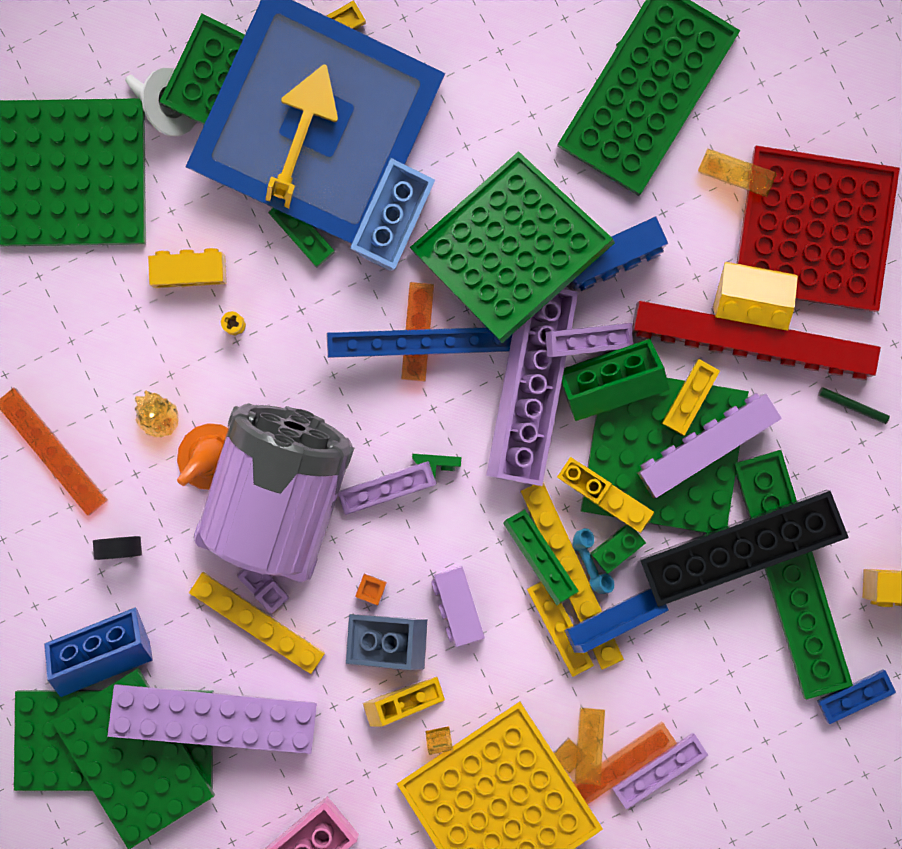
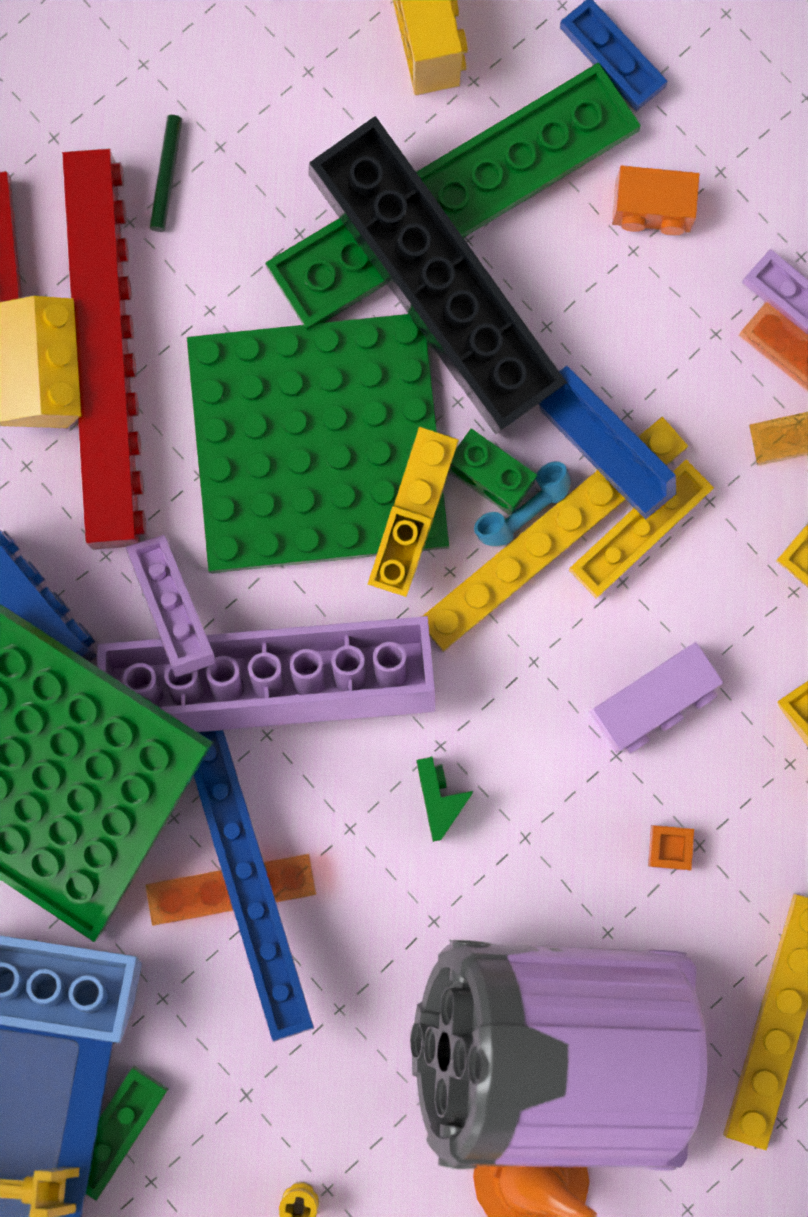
camera: 100 degrees left, 5 degrees down
(264, 588) = (725, 1021): lavender slope -> none
(386, 642) = (748, 797): sand blue slope -> none
(387, 487) = (500, 867): lavender tile -> none
(540, 557) = (540, 588): green plate -> none
(614, 379) = (224, 548): green slope -> none
(690, 397) = (220, 421): yellow plate -> none
(708, 445) = (288, 372): lavender brick -> none
(757, 694) = (655, 199): none -> orange brick

